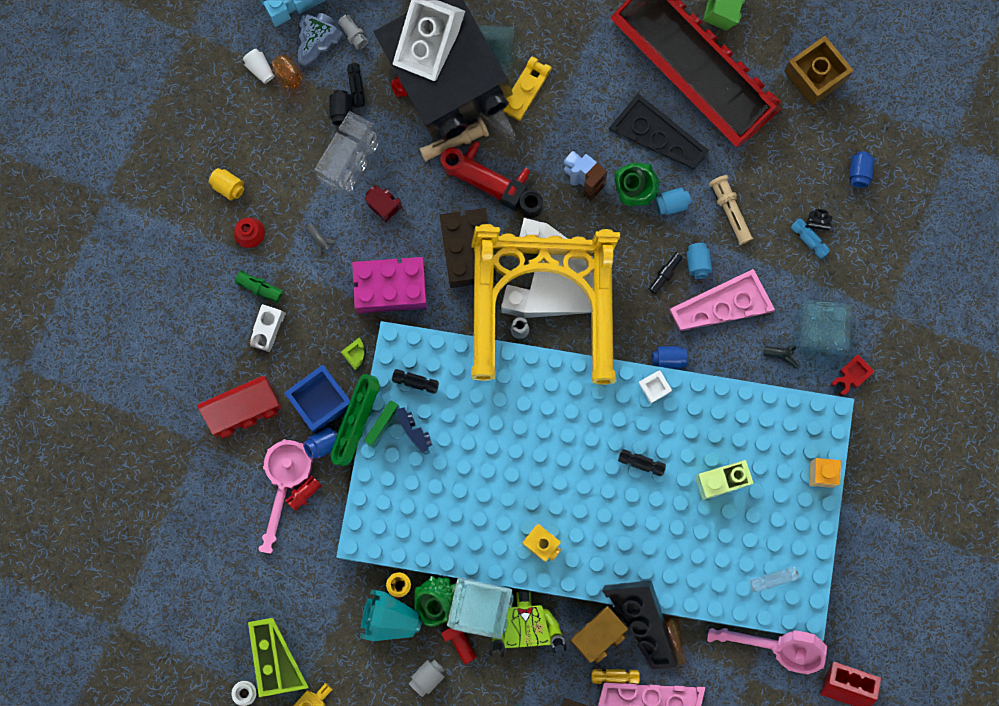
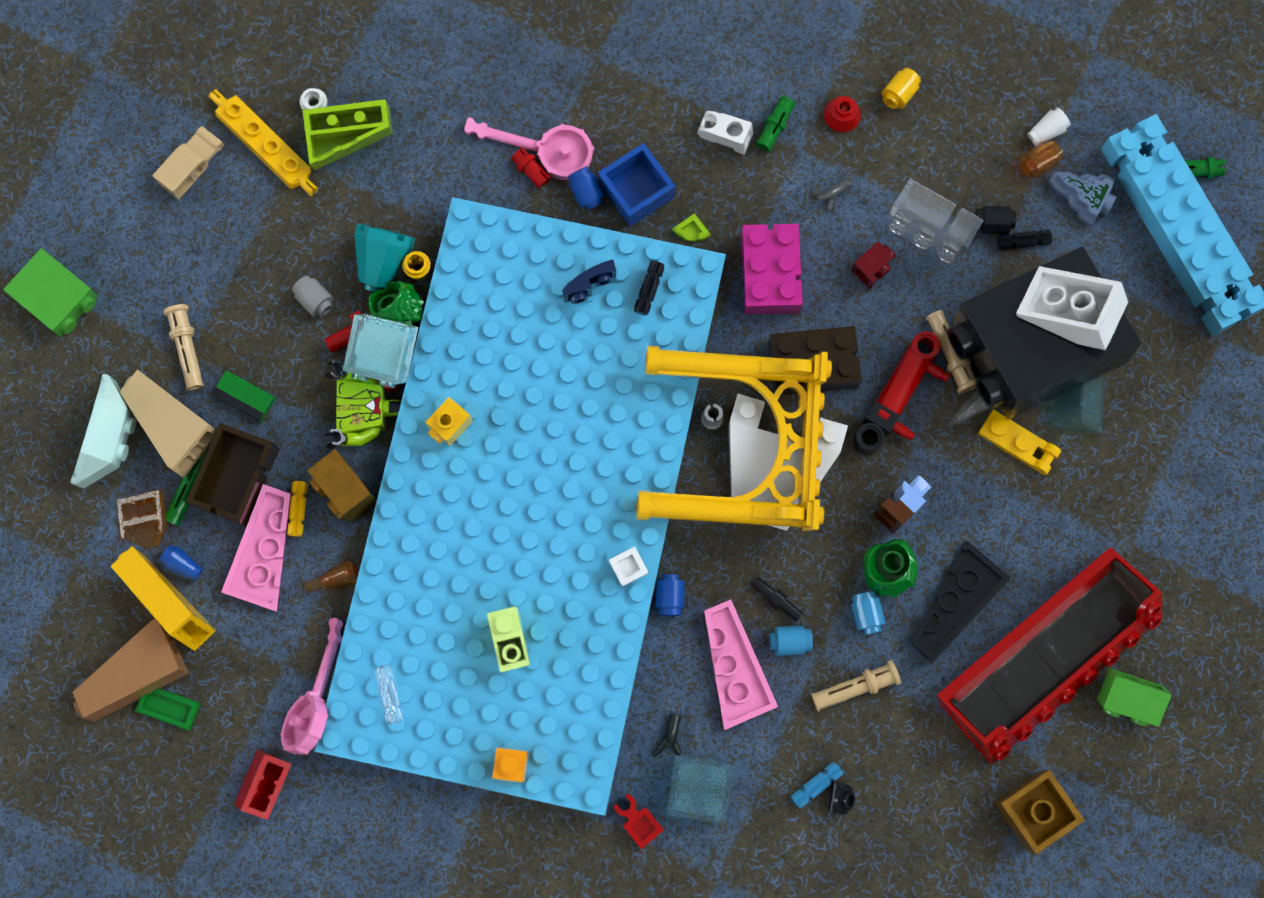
camera: 90 degrees right, 0 degrees up
(240, 407) = (631, 98): red slope -> none
(355, 35) = (1094, 236): light grey pin -> none
(355, 420) = (608, 220): green plate -> none
(381, 424) = (598, 246): green tile -> none
(642, 462) = (538, 546): black axle -> none
(644, 619) = (353, 539): black wing -> none
(861, 169) = (905, 858): blue brick -> none

